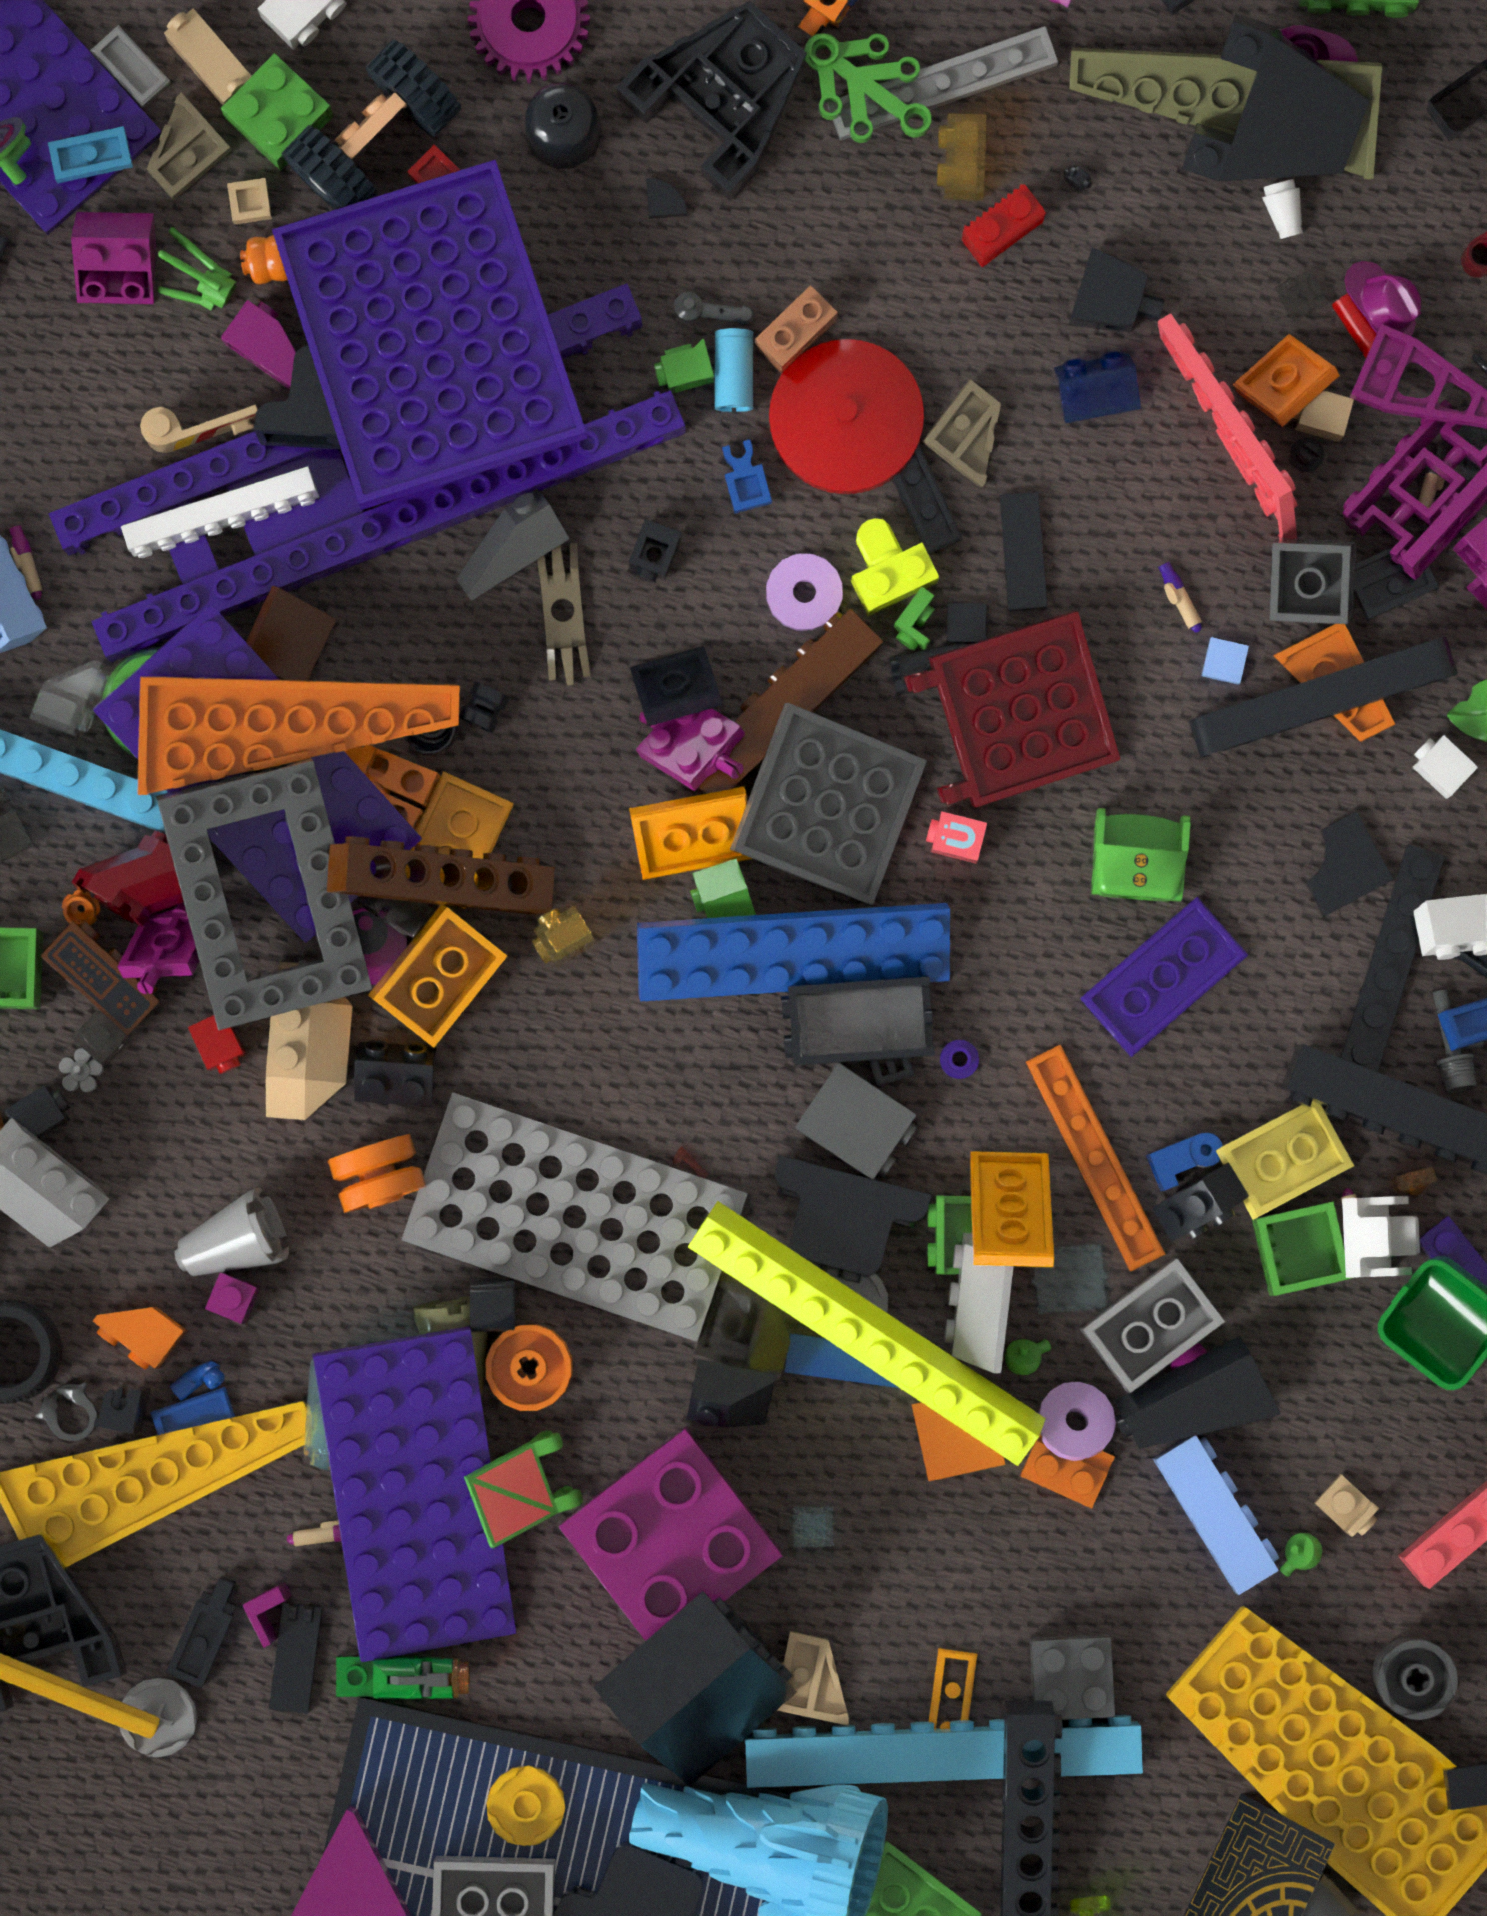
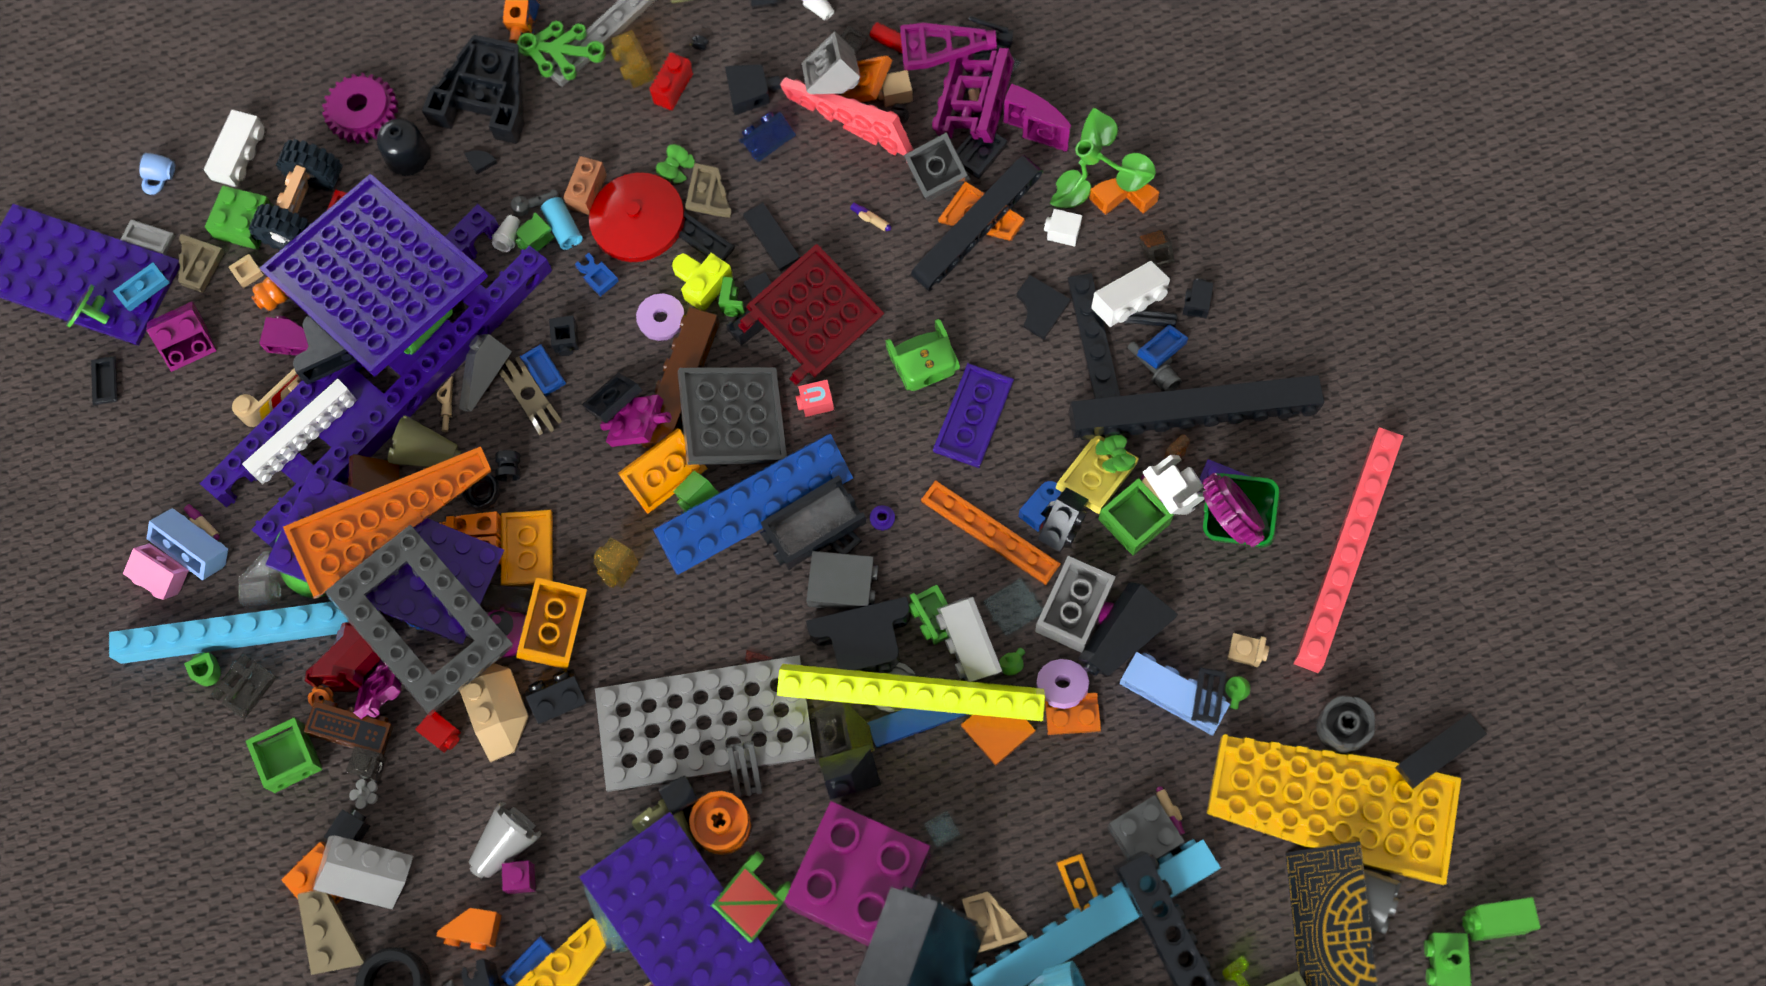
camera: 20 degrees left, 15 degrees down
(195, 1377) = (524, 933): blue arm -> none
(206, 55) = (184, 208): tan brick -> none
(214, 286) = (244, 322): bright green plant -> none
(351, 875) = (467, 579): reddish brown brick -> none
(377, 1174) = (570, 754): orange wheel -> none
(379, 618) = (419, 445): none -> olive cone
(439, 569) = (446, 410): none -> tan hand
(587, 1338) = (748, 790): none -> dark grey tile
(600, 584) = (543, 370): none -> blue tile
(647, 344) = (506, 234): none -> white cone
(950, 350) = (676, 157): none -> bright green piece
(1011, 1209) = (956, 576): light orange tile -> none
(1123, 1664) = (1172, 811): none -> tan piece
(1225, 661) = (913, 236): light blue tile -> none
(1243, 339) = (831, 67): none -> light grey slope
(1276, 1520) = (1205, 718): none -> black tile
(1326, 1160) = (1120, 459): none -> bright green piece
(1383, 297) = (894, 15): magenta piece -> none
(1429, 1326) = (1233, 510): none -> magenta gear

